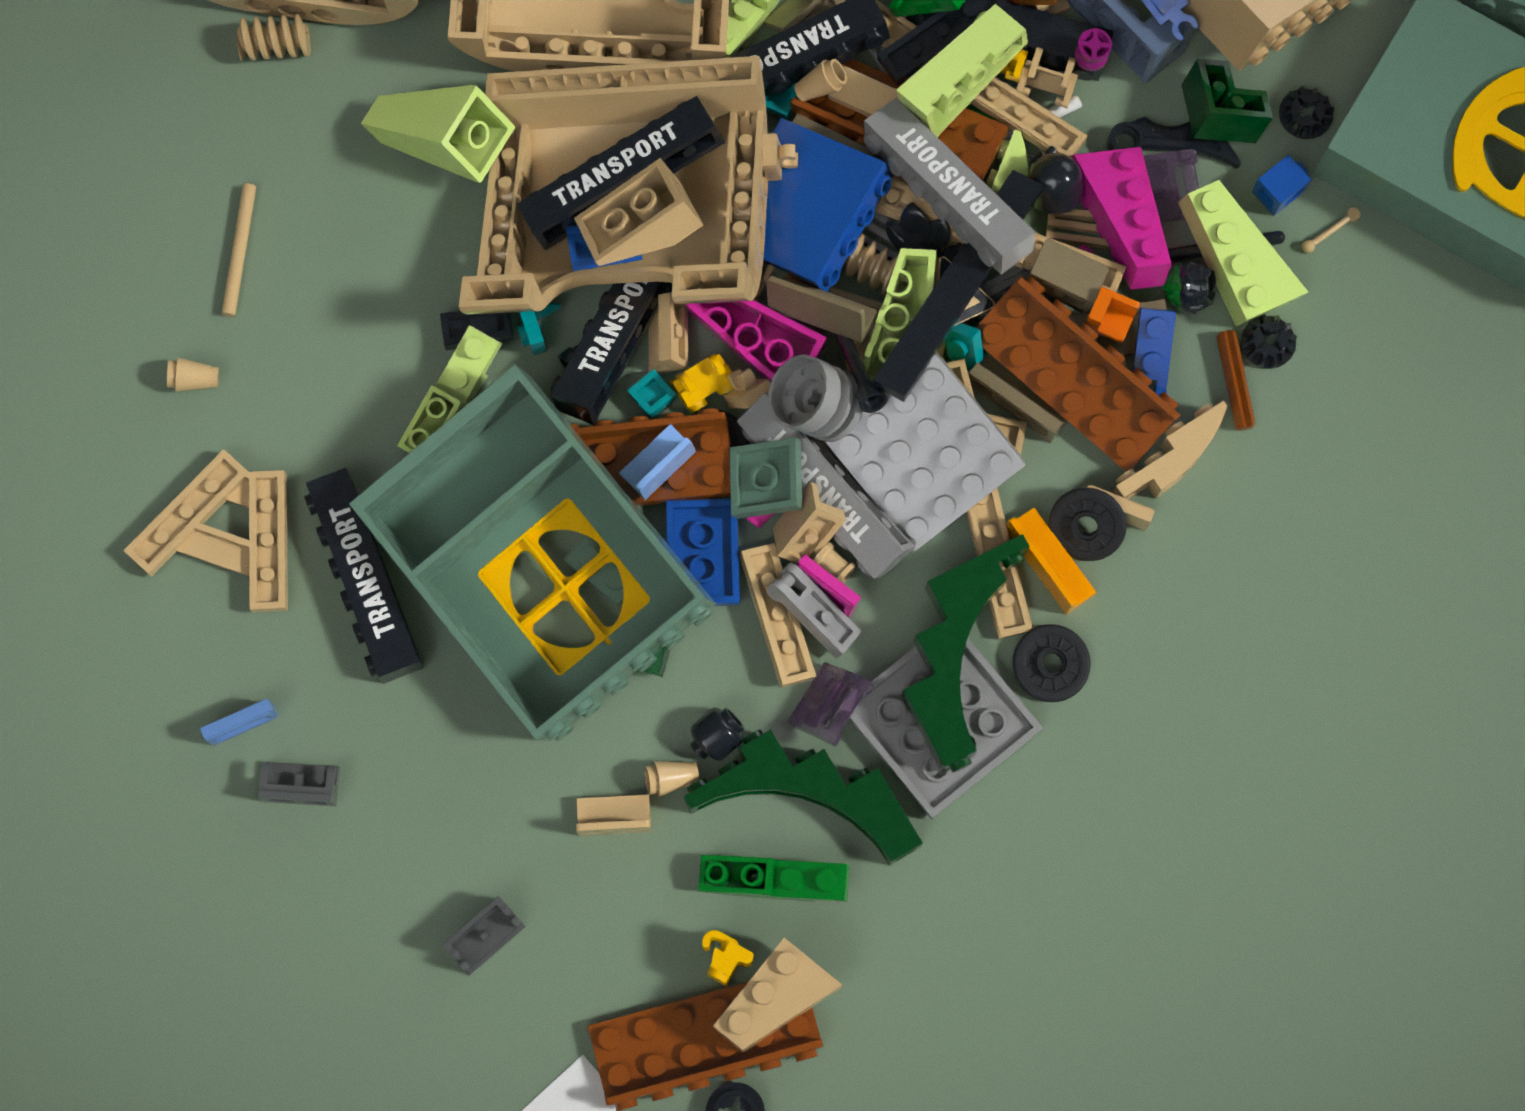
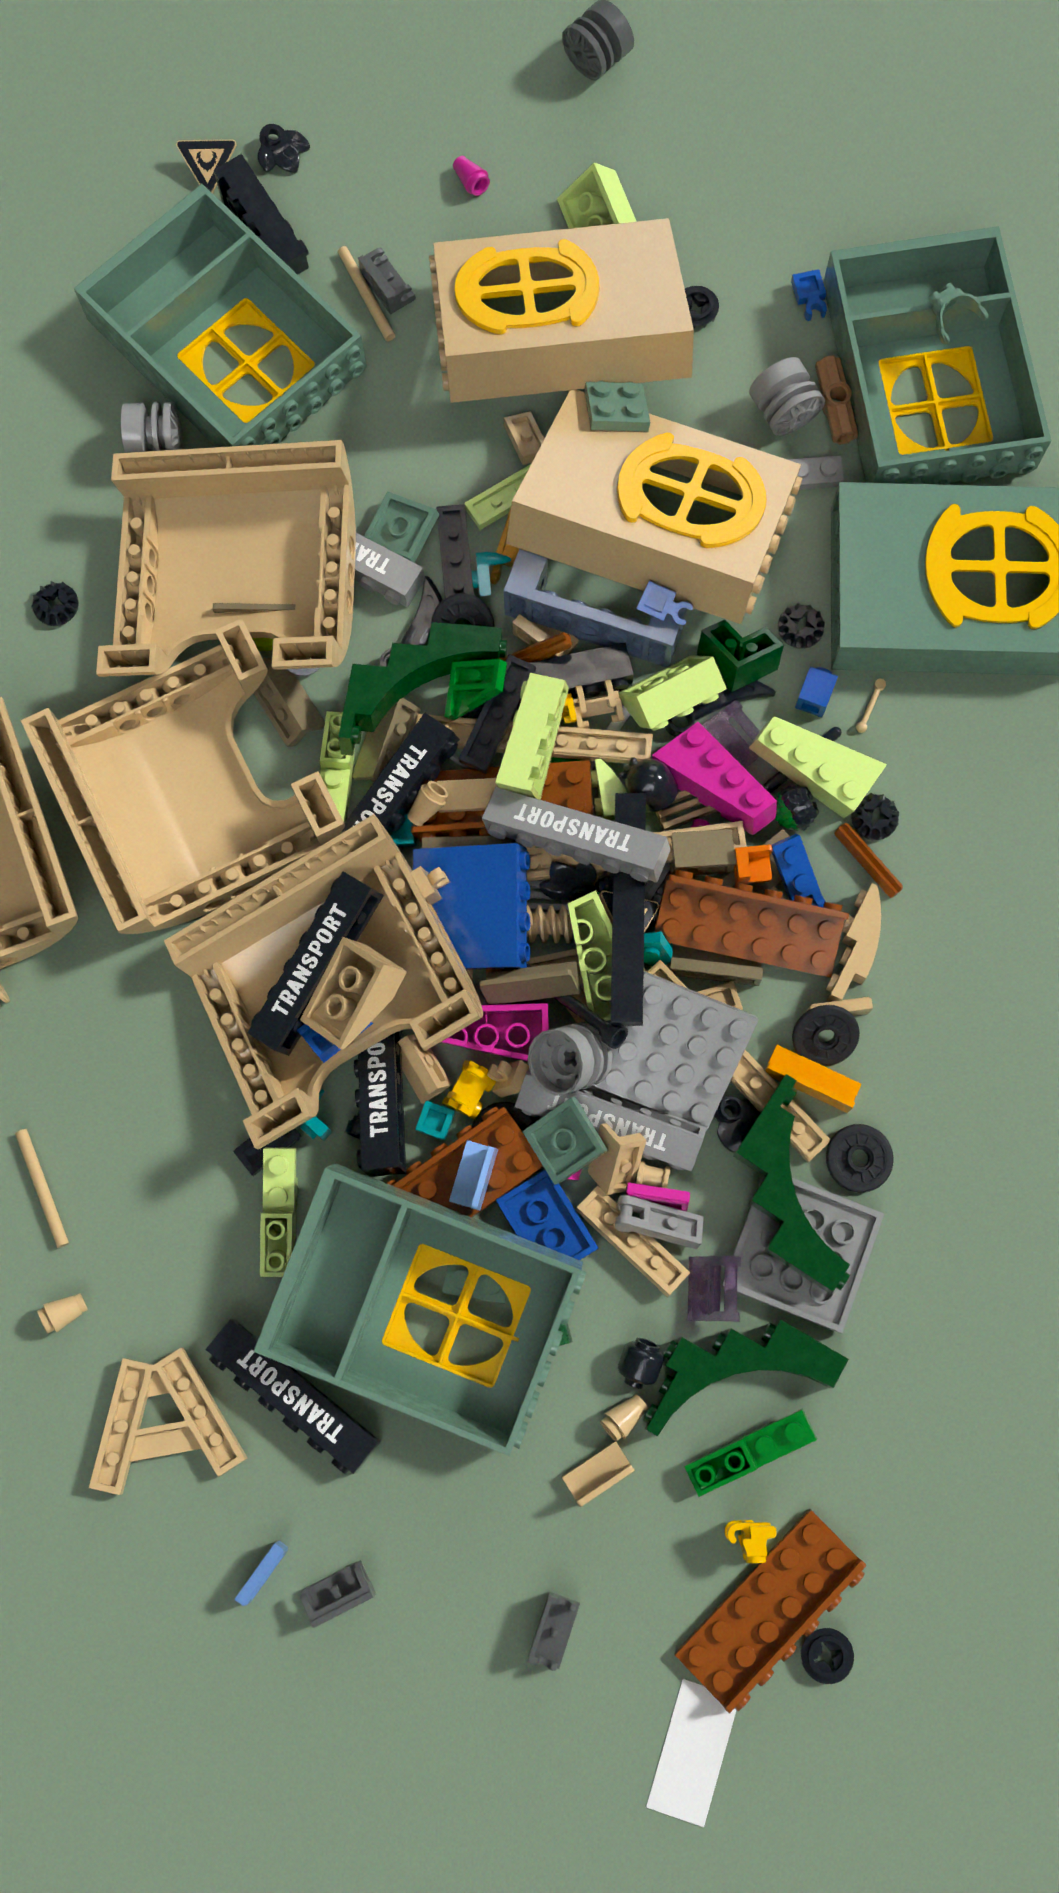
camera: 25 degrees left, 0 degrees up
(442, 126) = (152, 1002): yellowish green slope -> none
(774, 996) = (808, 1550): tan wedge -> none
(940, 560) = (734, 1129): none -> black plate
(1097, 42) = (619, 658): magenta wheel -> none
(1133, 106) = (673, 691): none -> yellowish green slope

